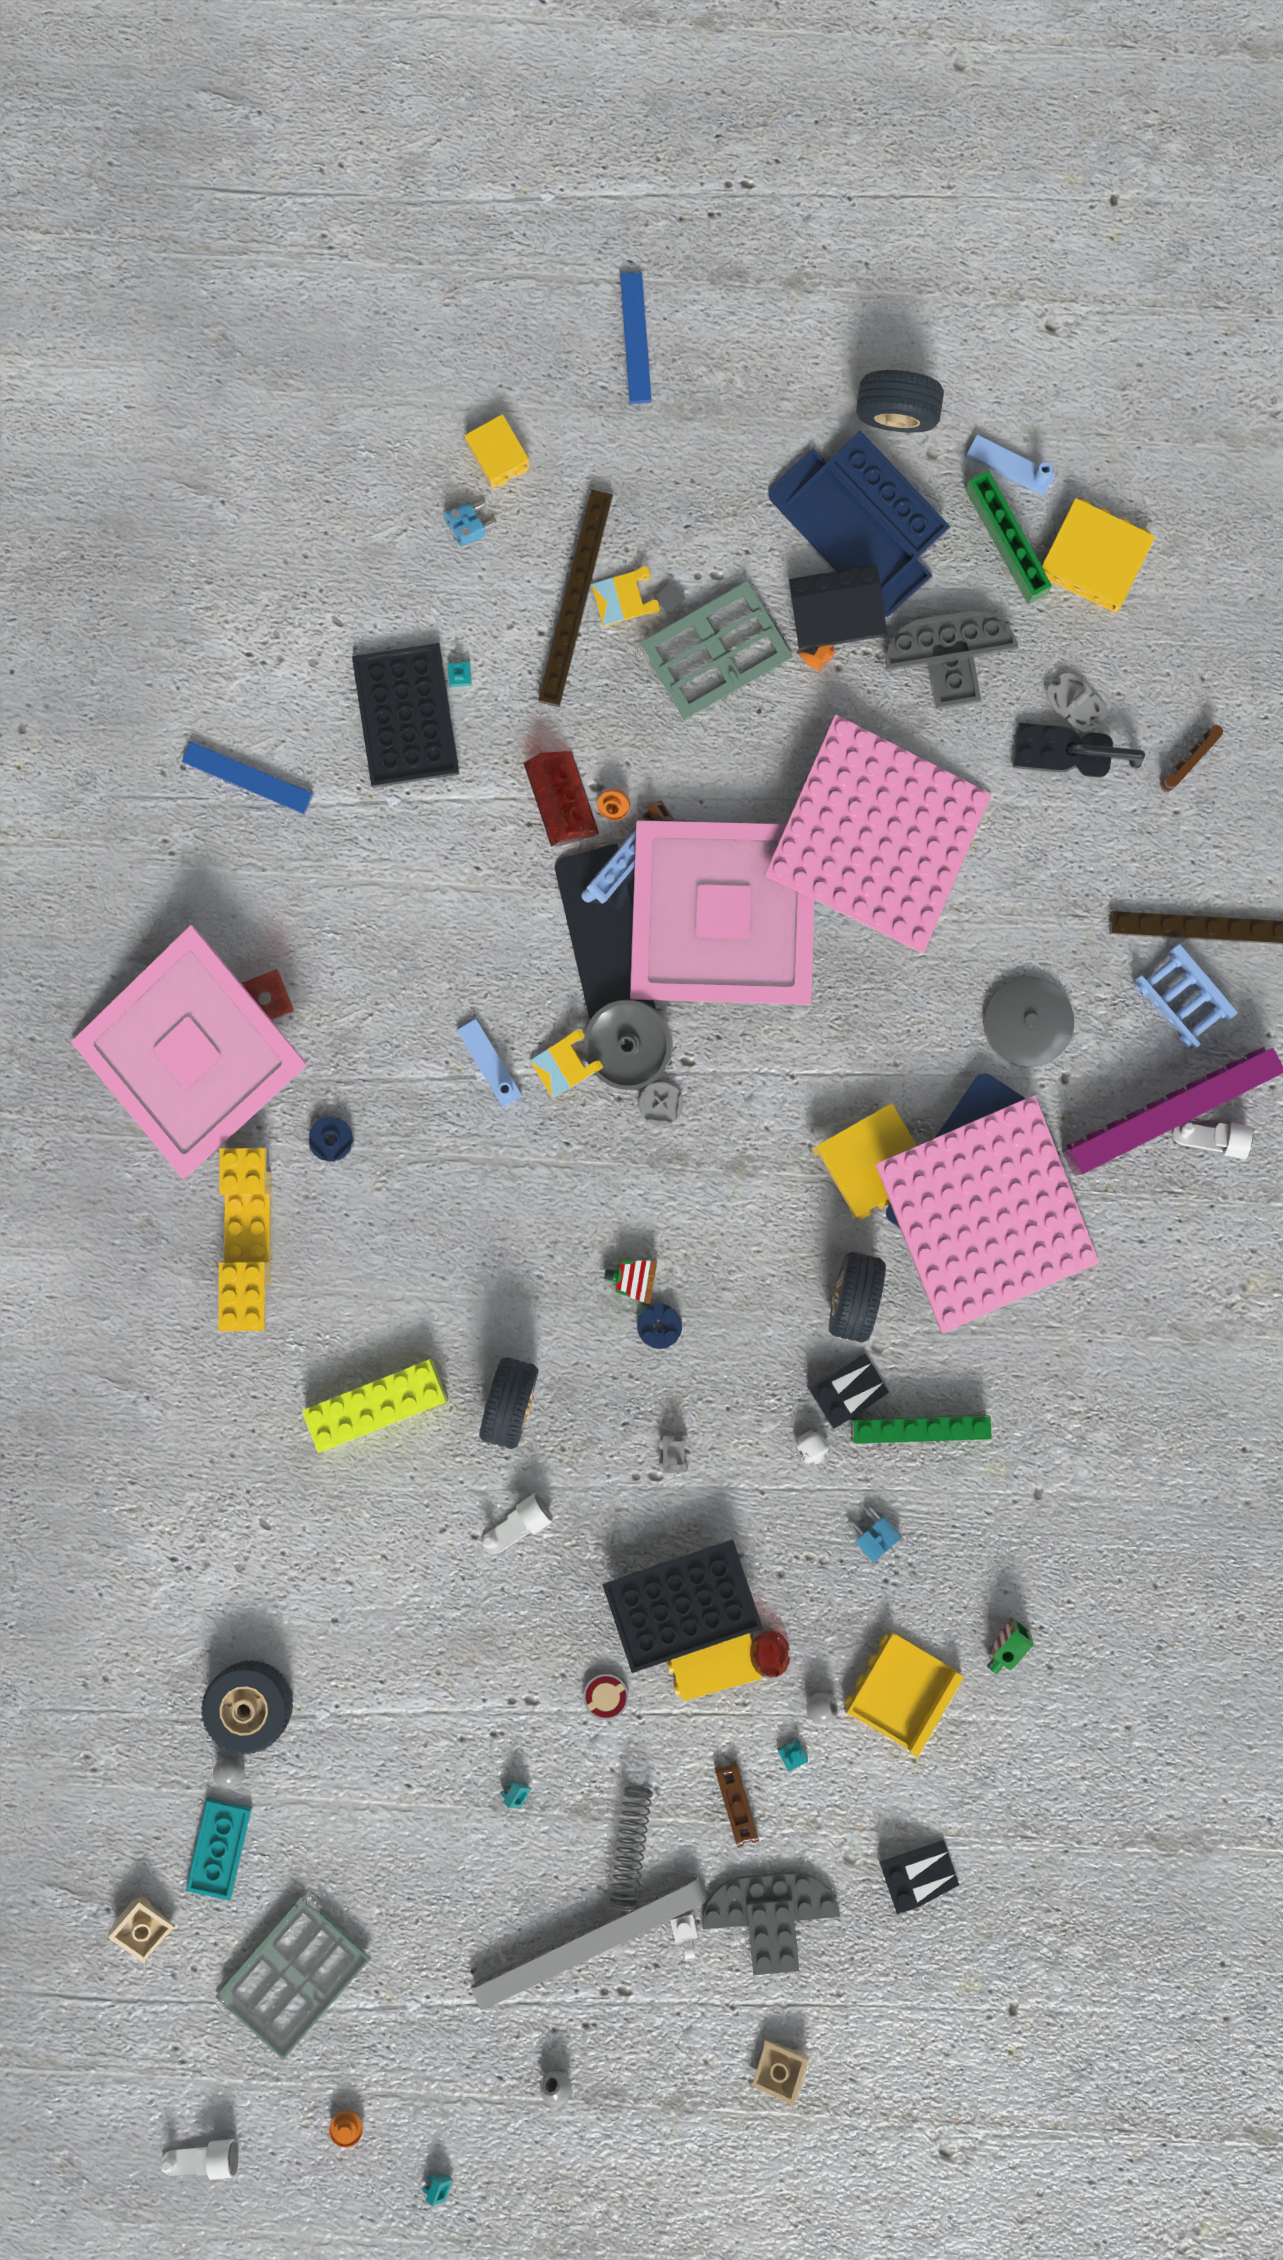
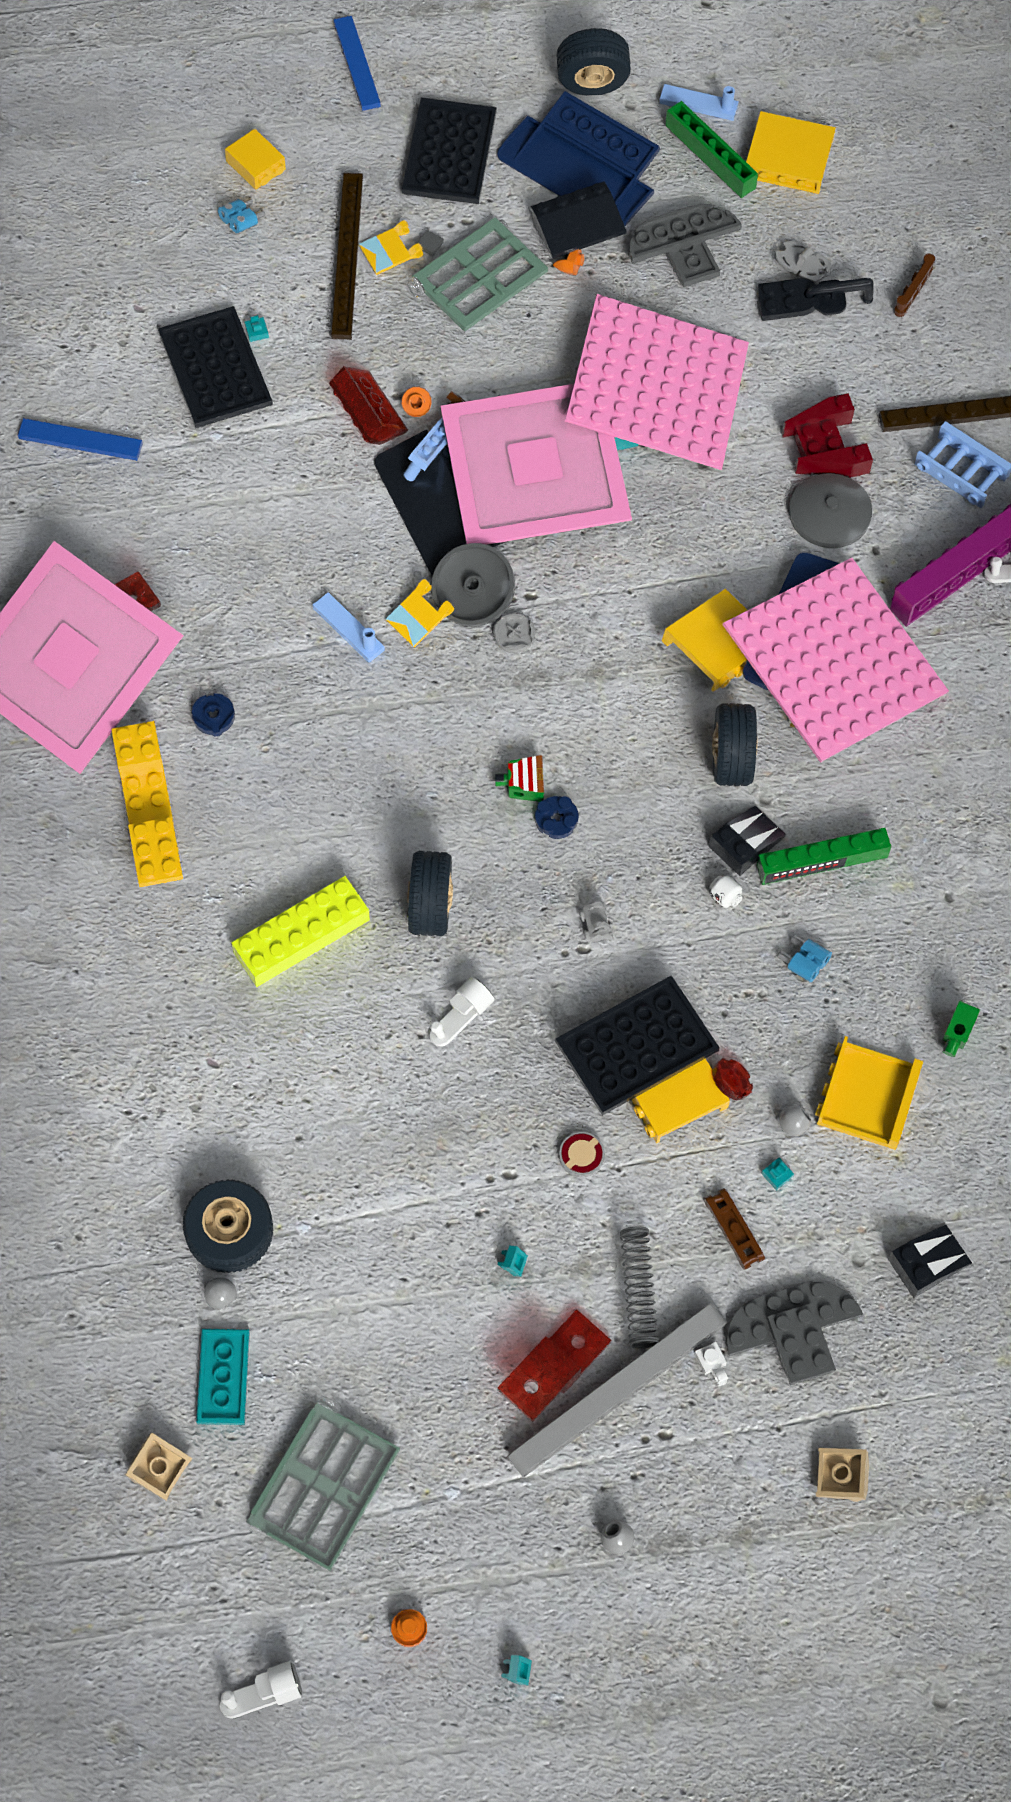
camera: 15 degrees left, 20 degrees down
(532, 1911) = (554, 1365): none -> clear red bracket
(715, 479) = (449, 150): none -> black plate
(1039, 938) = (821, 442): none -> dark red wedge

